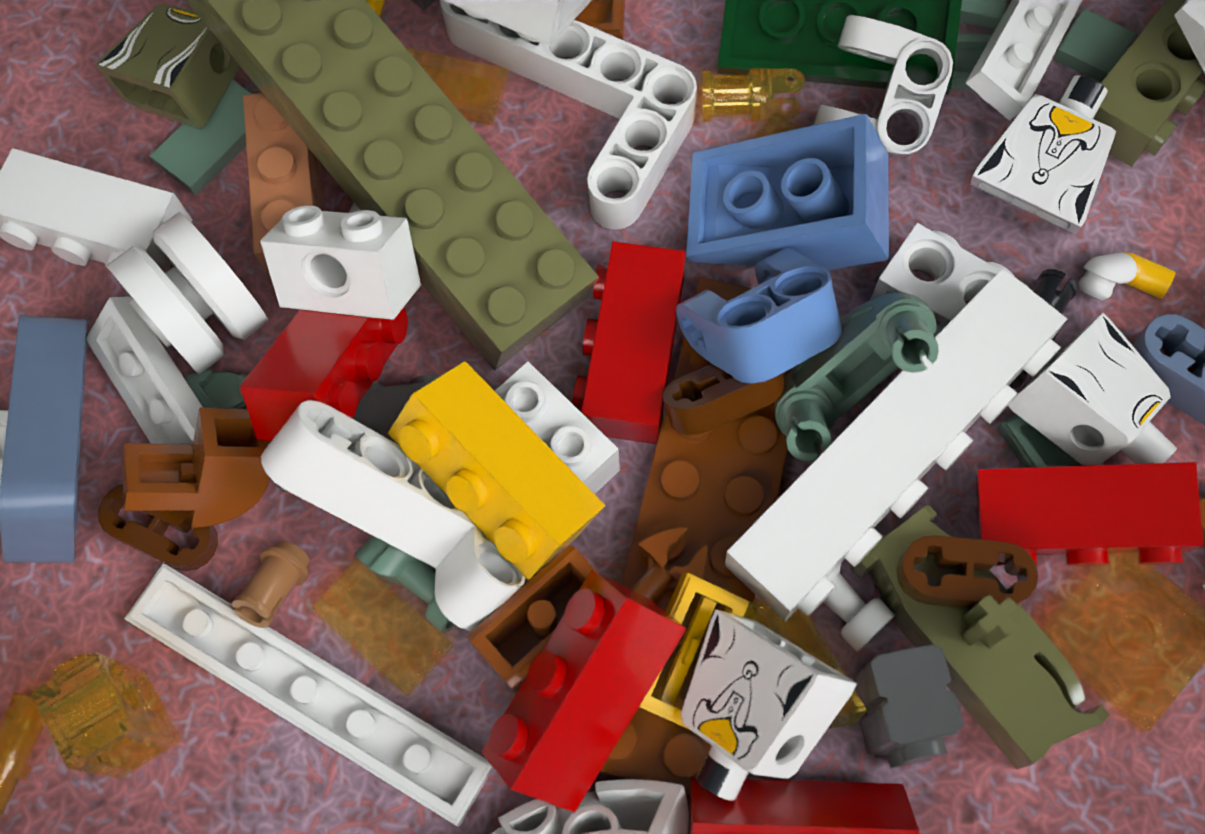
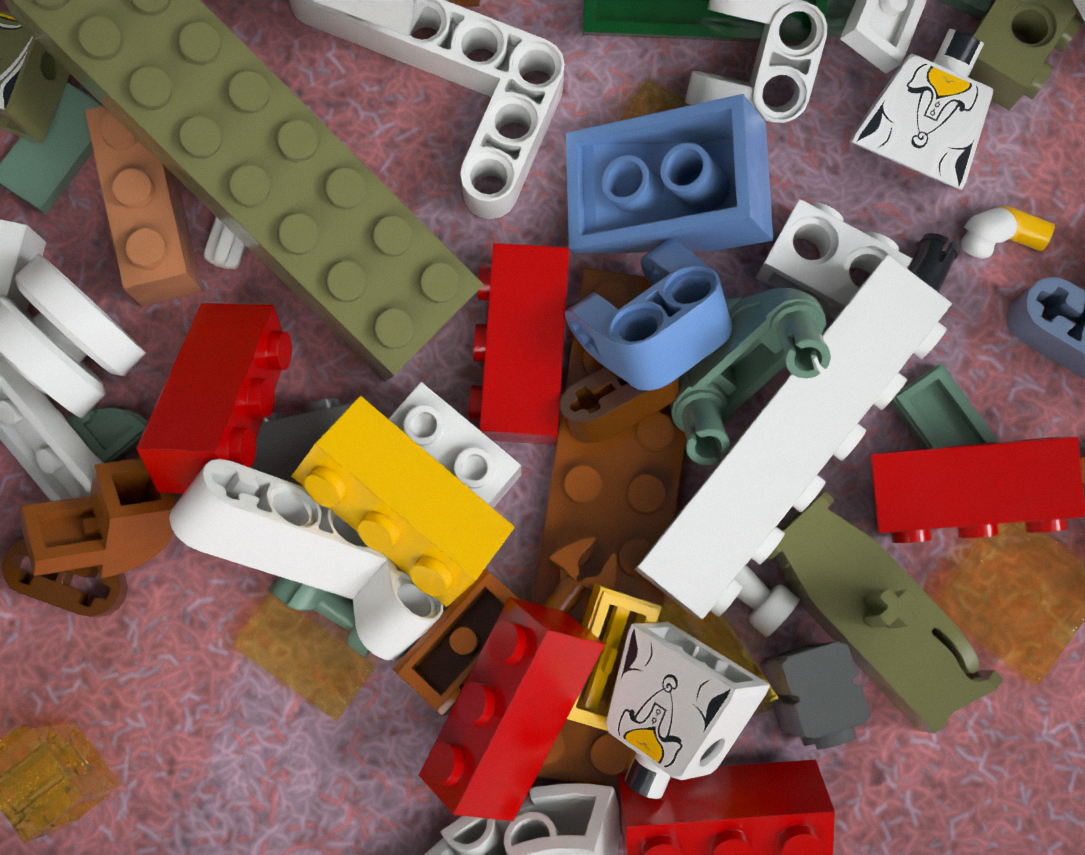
camera: 15 degrees left, 10 degrees up
(279, 572) = (189, 626): medium nougat pin -> none
(312, 695) = (238, 726): white tile -> none
(342, 262) = (219, 298): white brick -> none
(469, 85) = (313, 70): clear yellow tile -> none
(749, 94) = (621, 62): clear yellow piece -> none
(967, 557) = (866, 544): reddish brown beam -> none
(1098, 399) = (984, 369): white torso -> none

